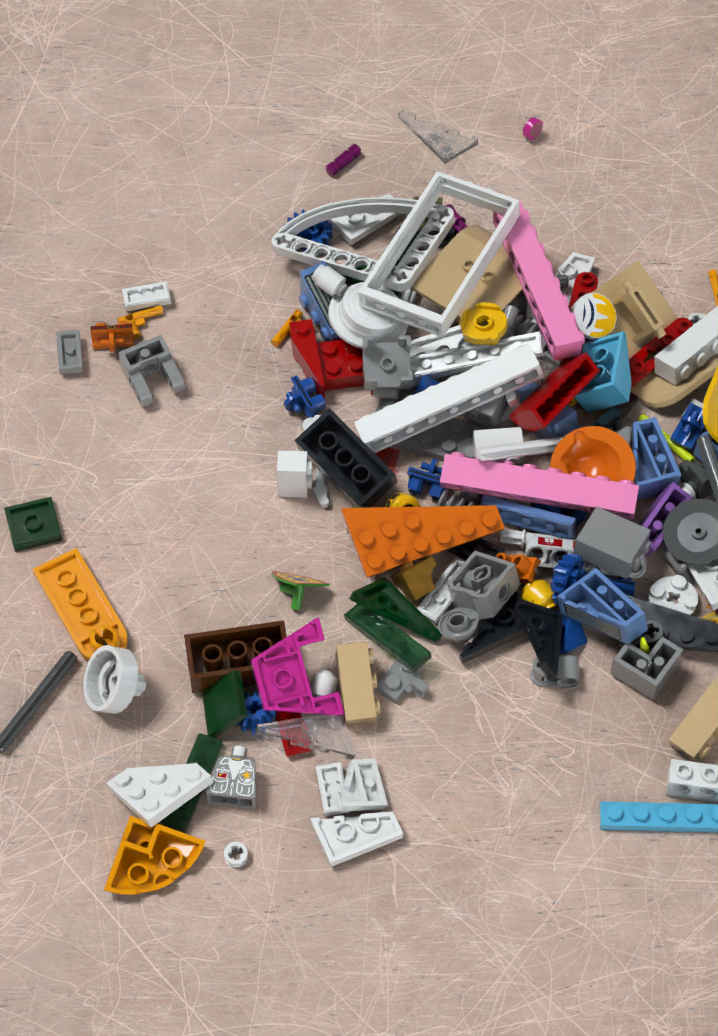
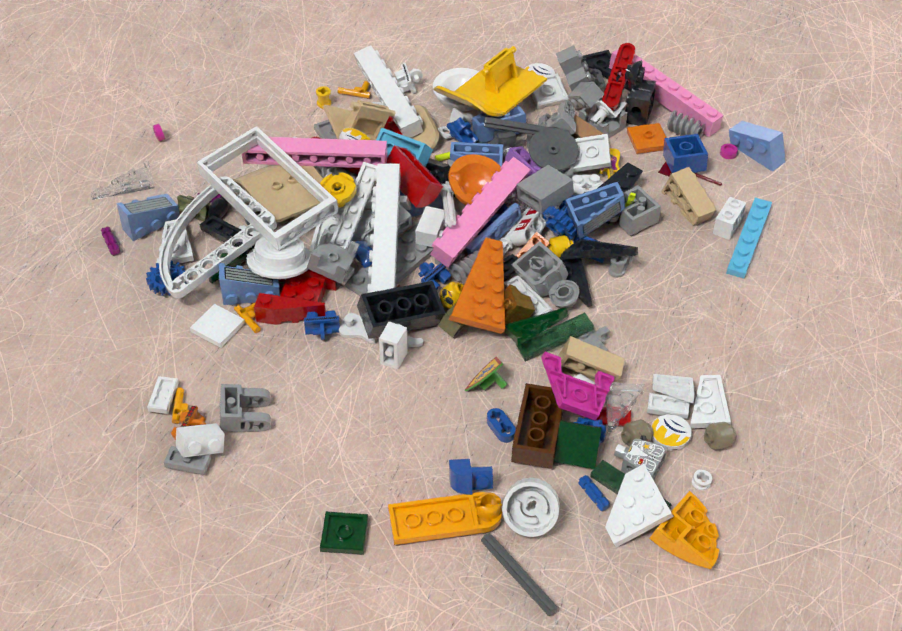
camera: 70 degrees left, 10 degrees down
(89, 349) = (199, 440): none -> white brick
(136, 607) = (466, 478): none -> blue brick
(172, 744) = (594, 493): none -> blue axle
(231, 619) = (504, 423): none -> blue beam
(264, 305) = (217, 325): none -> white tile
(273, 765) = (636, 430): none -> dark tan head
(294, 803) = (671, 432): none -> tile
(304, 855) = (719, 435): none -> dark tan head
(329, 280) = (240, 263): white brick -> none
(387, 173) = (147, 215): none -> medium blue wedge
(686, 258) = (323, 96): none -> yellow bush

